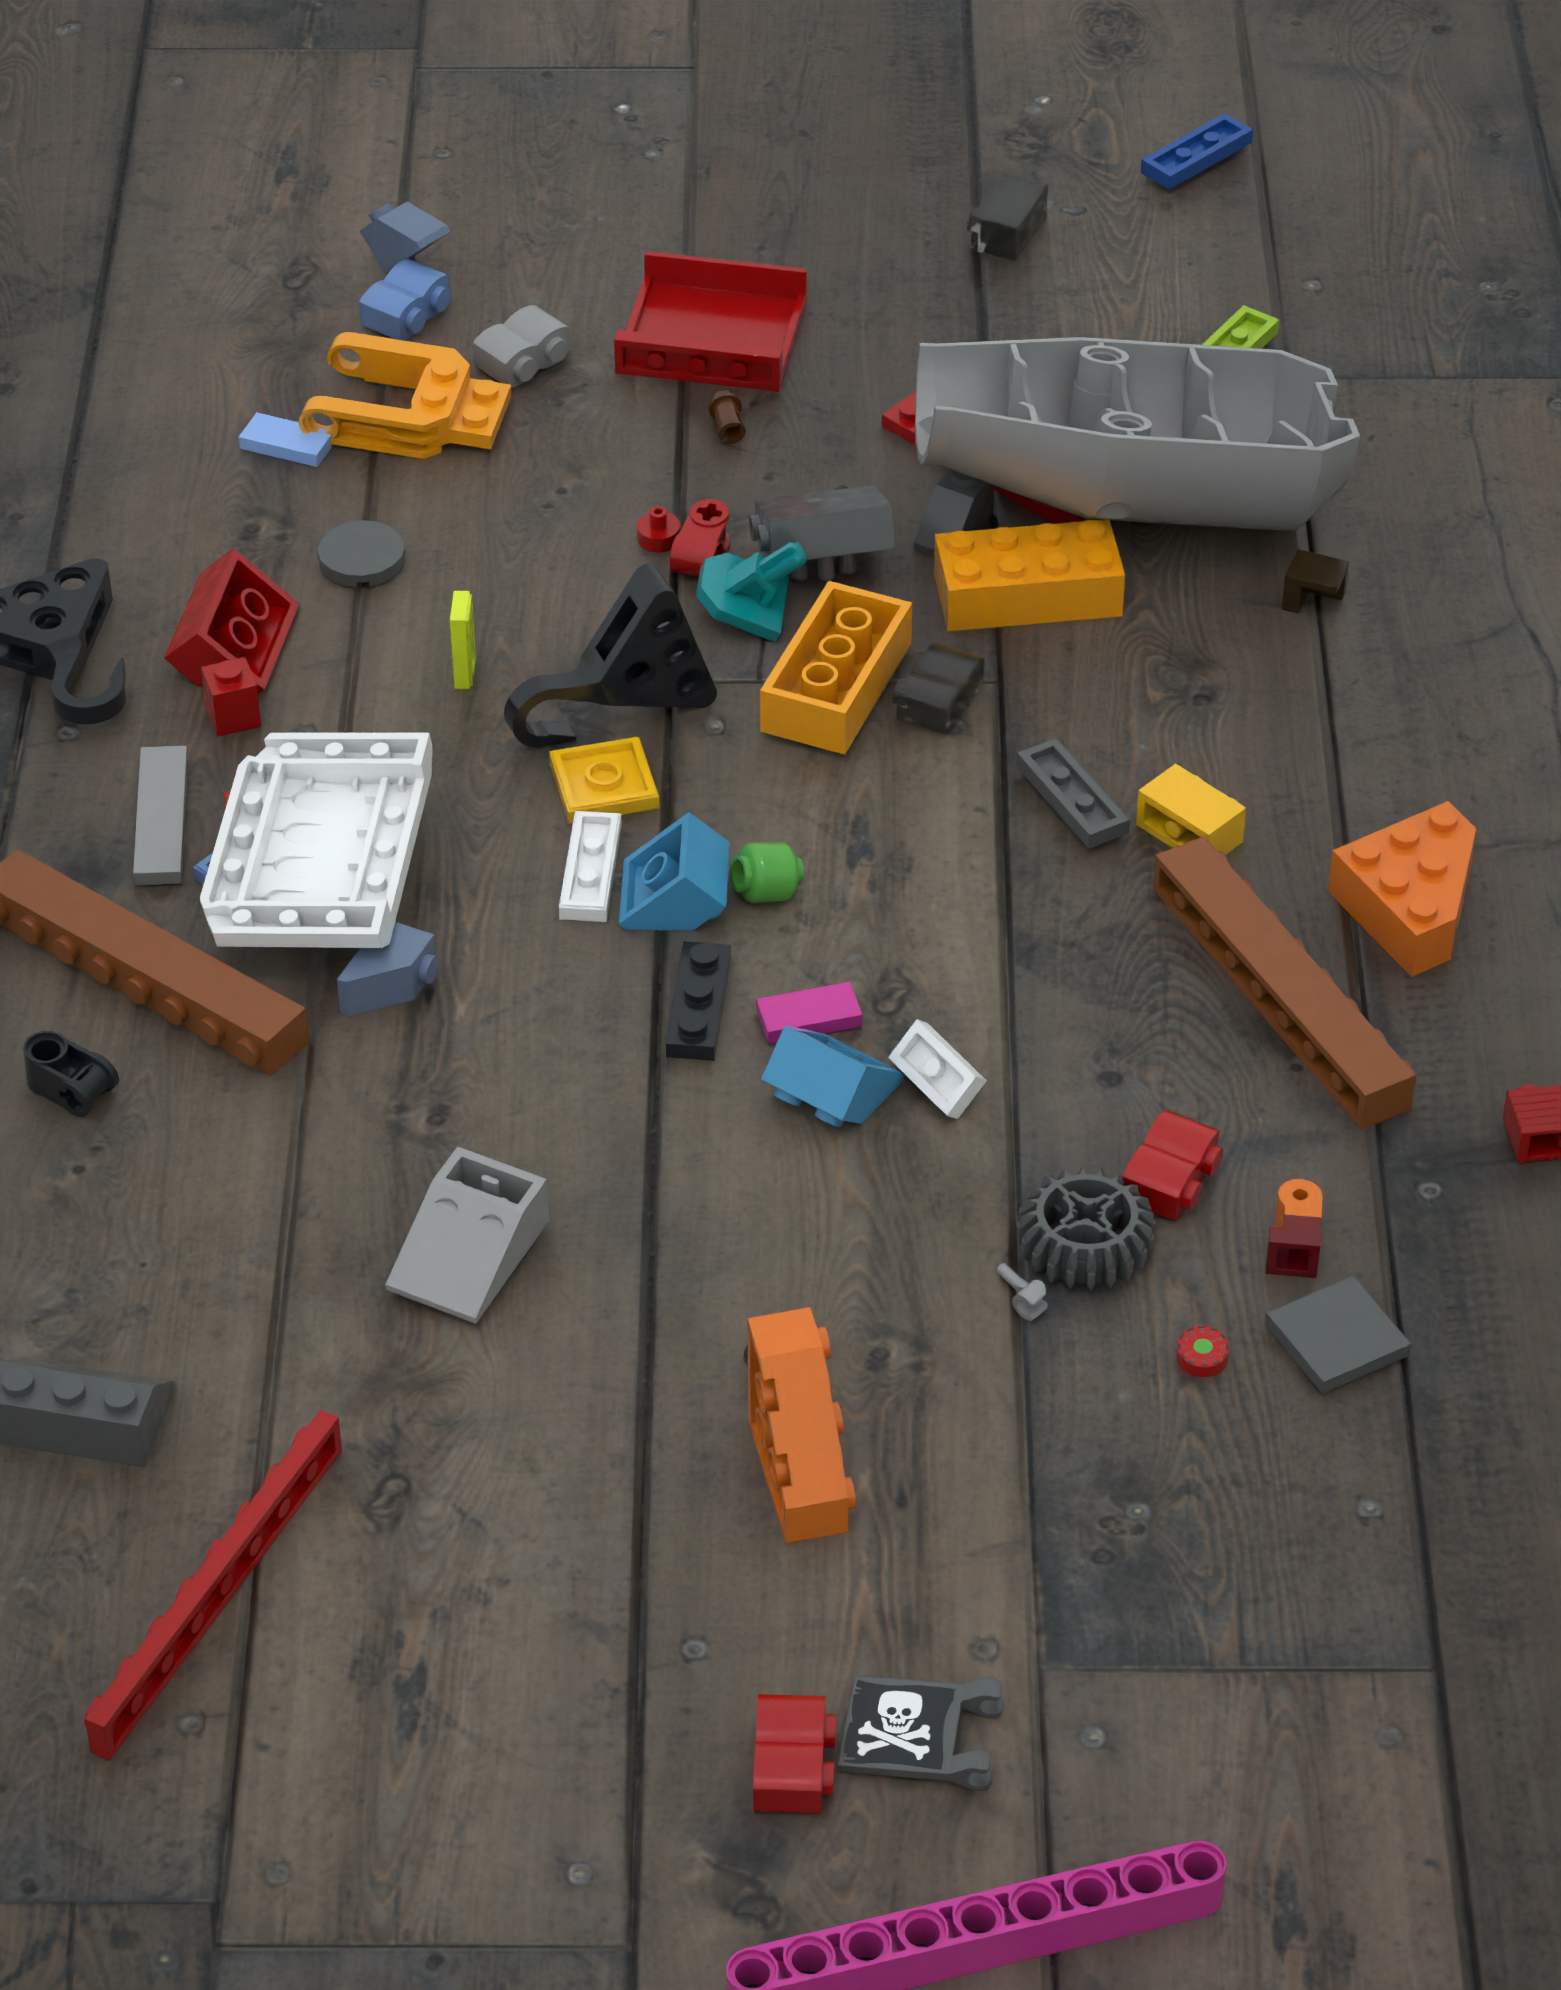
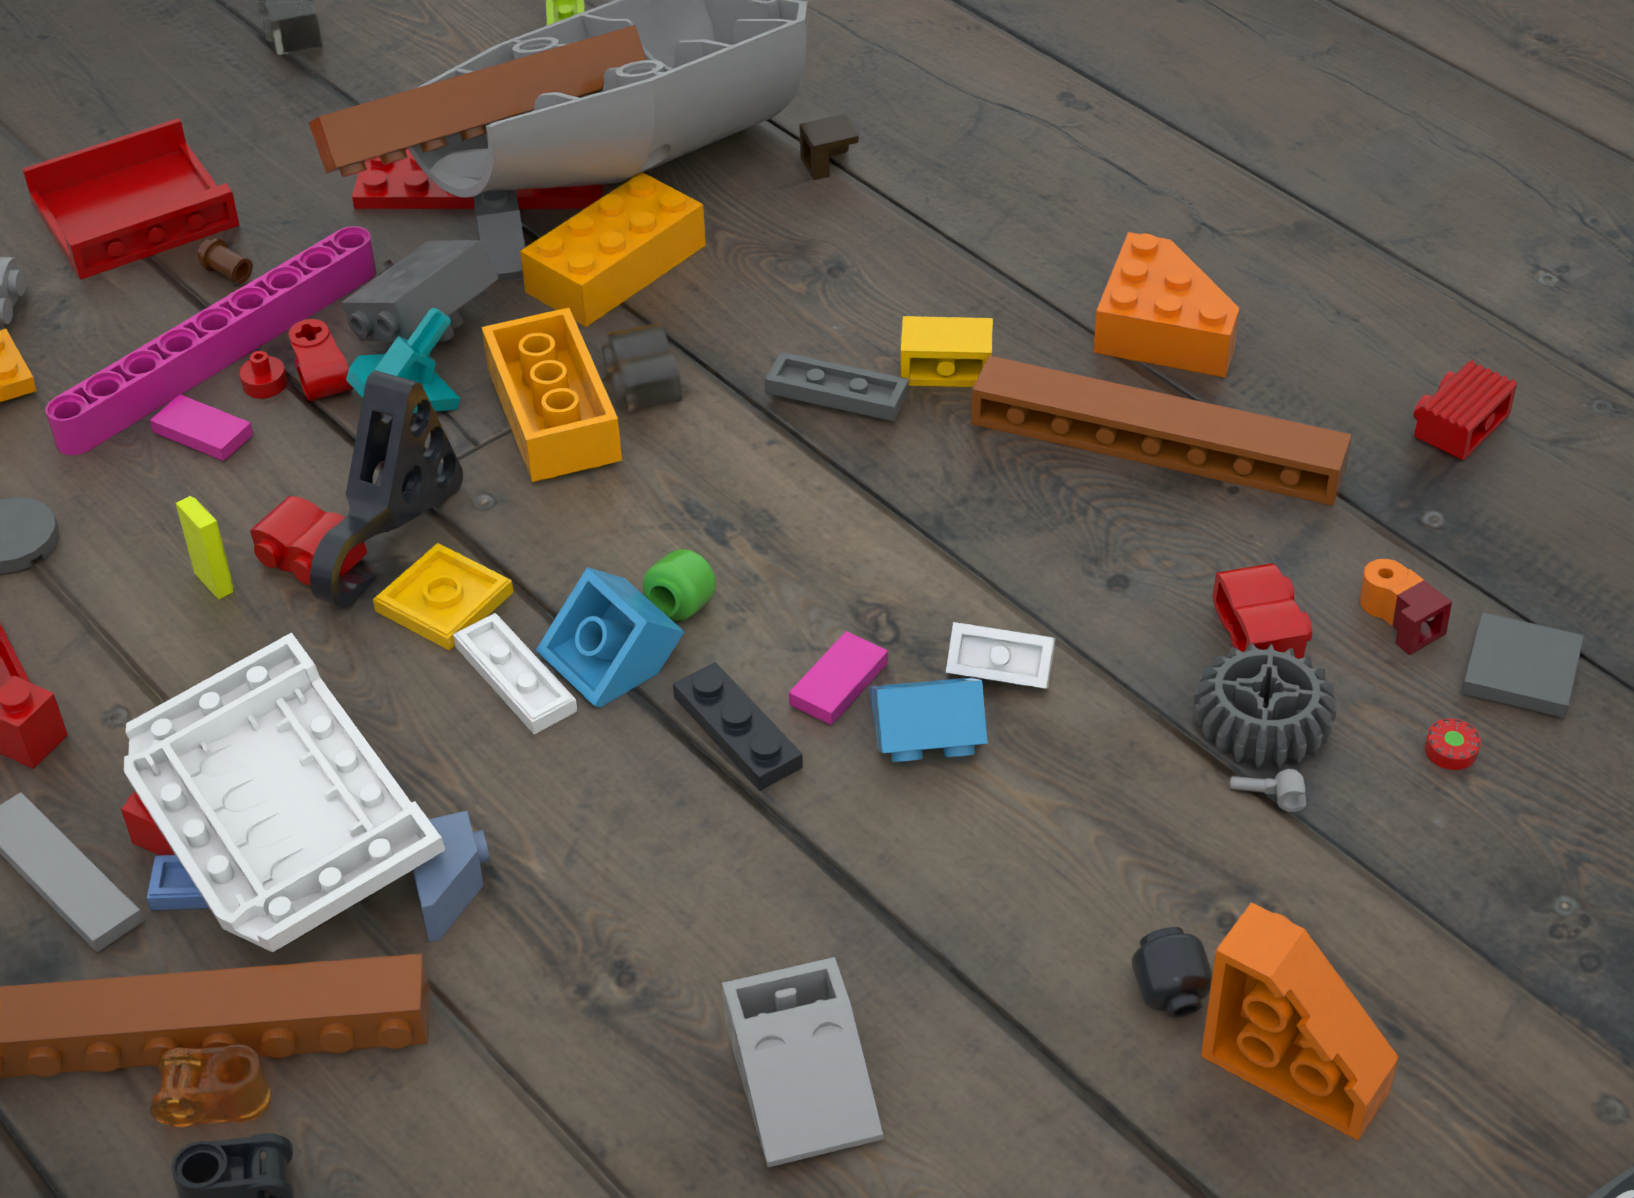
camera: 40 degrees left, 0 degrees up
(109, 1011) = (211, 1085): none -> clear orange piece
(544, 658) = (292, 534): none -> red brick
(573, 547) = (201, 427): none -> dark pink tile
(650, 478) = (210, 341): none -> dark pink beam
(987, 380) = (466, 102): none -> dark orange brick

